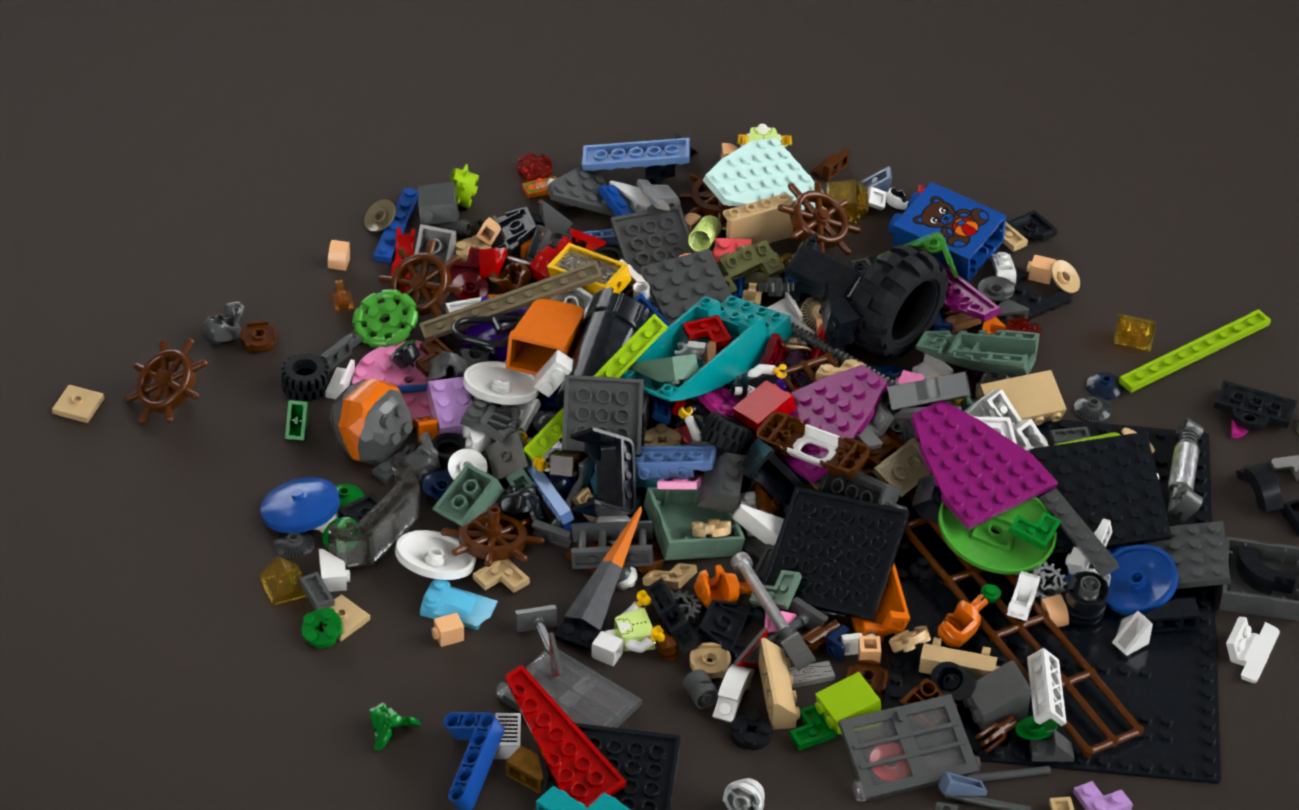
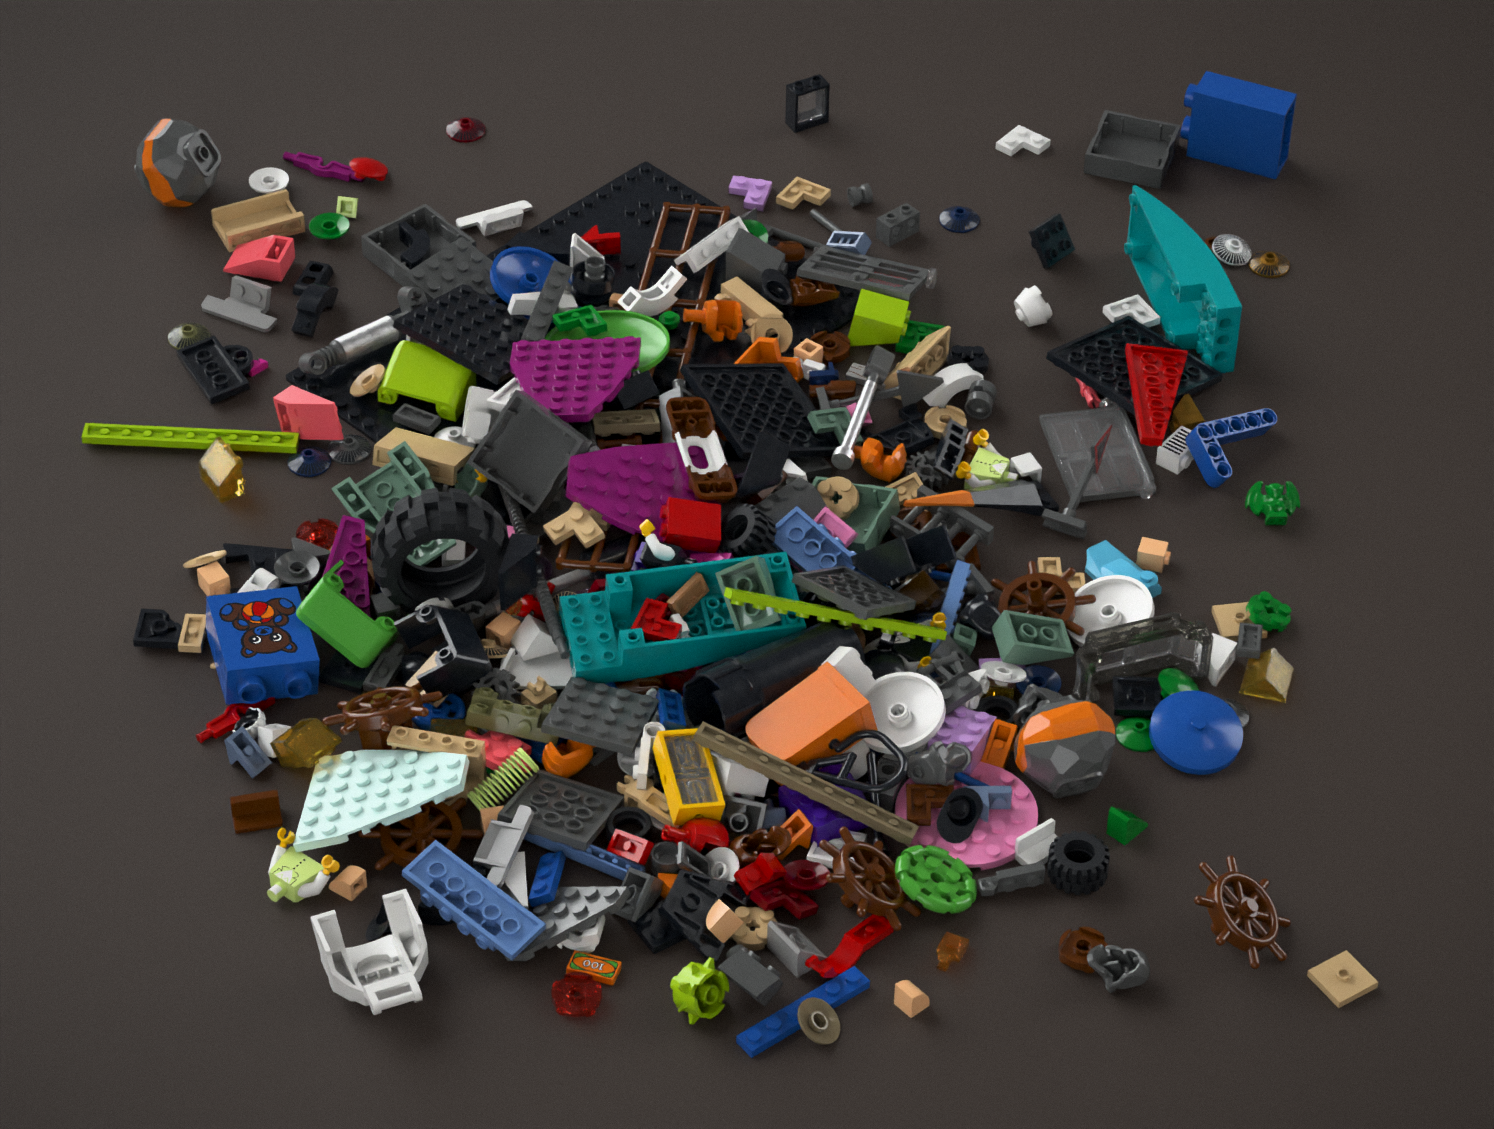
camera: 140 degrees left, 0 degrees up
(399, 372) = (993, 798): none -> sand blue slope
(657, 111) = (380, 971): none -> white piece
(1135, 387) = (307, 415): none -> coral slope
(1141, 653) = (604, 243): none -> red slope

